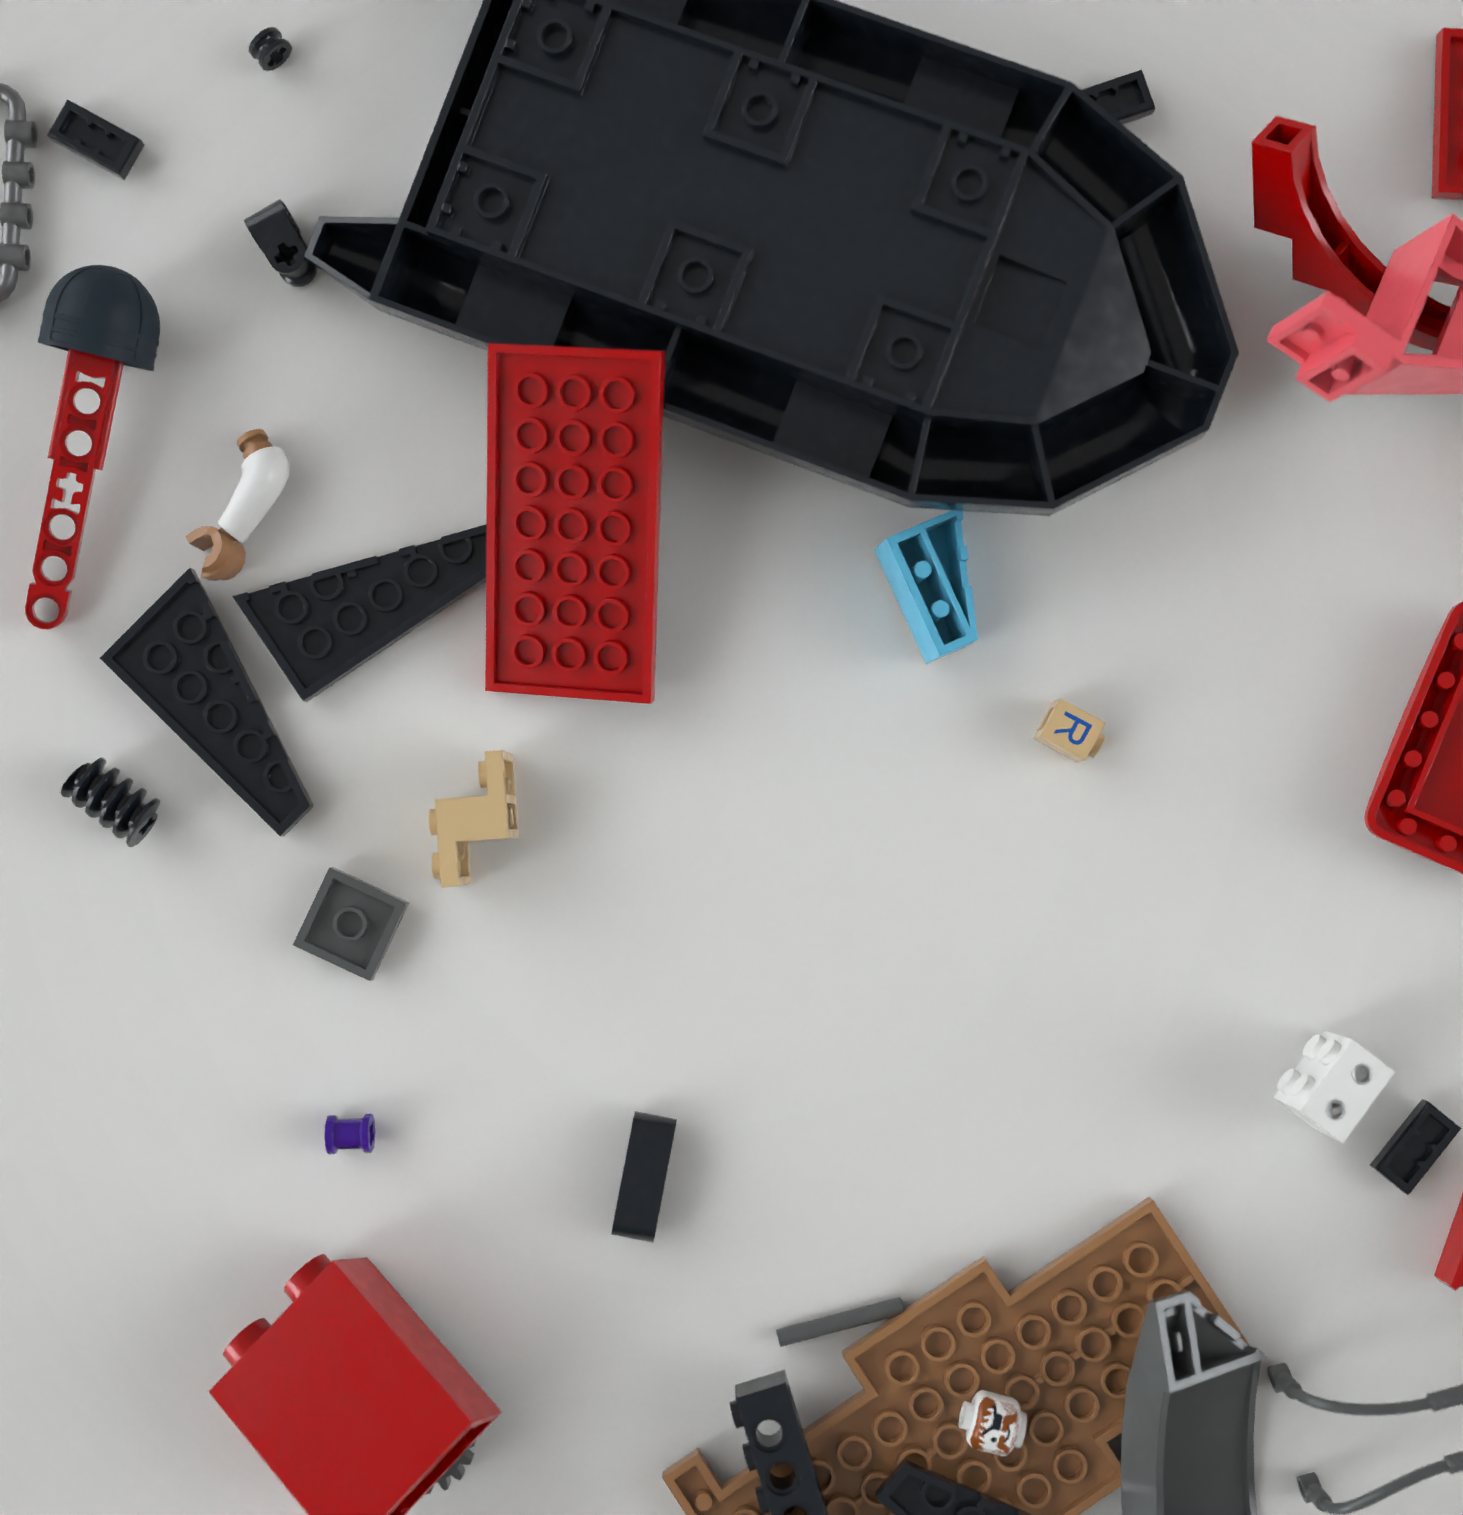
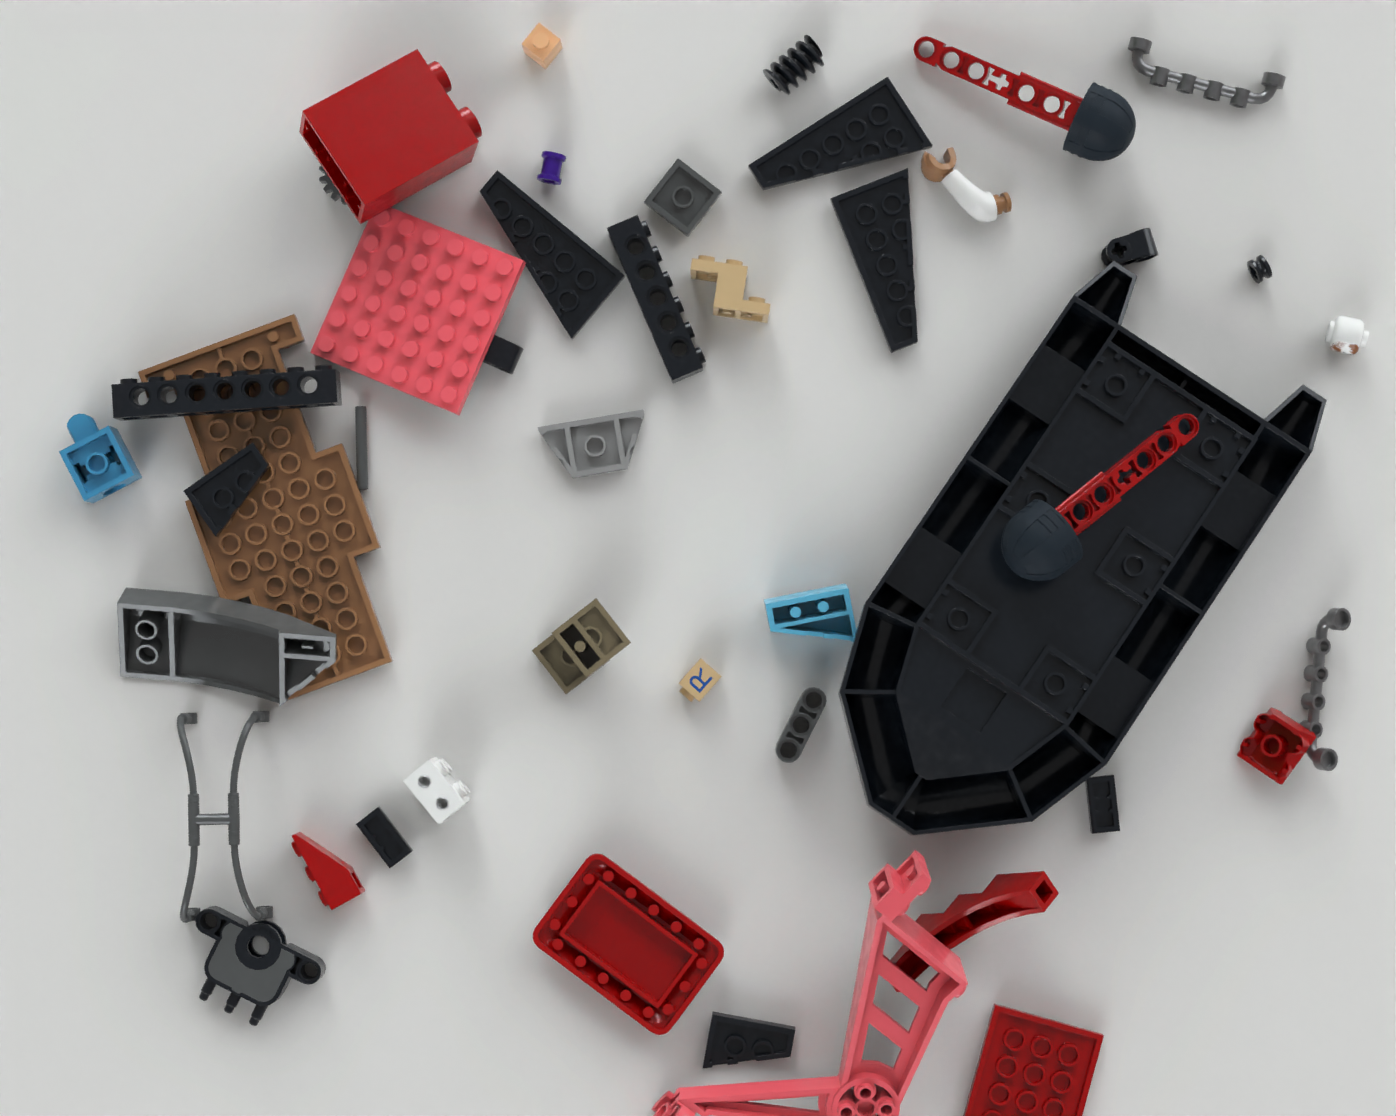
camera: 110 degrees right, 0 degrees up
(95, 139) = (1224, 144): black plate -> none
(164, 1193) = (542, 45): none -> light nougat brick
(430, 1001) = (622, 236): none -> black brick
(491, 1086) = (562, 264): none -> black wing
(573, 520) = (902, 391): red plate -> none
(610, 1287) = (418, 308): none -> coral plate
(752, 969) = (594, 443): none -> light grey wing
(760, 239) = (1042, 541): none -> piece
(993, 1423) = (279, 526): white head -> none
(1065, 917) = (581, 646): none -> dark tan bracket
(1119, 563) = (812, 716): none -> dark grey beam

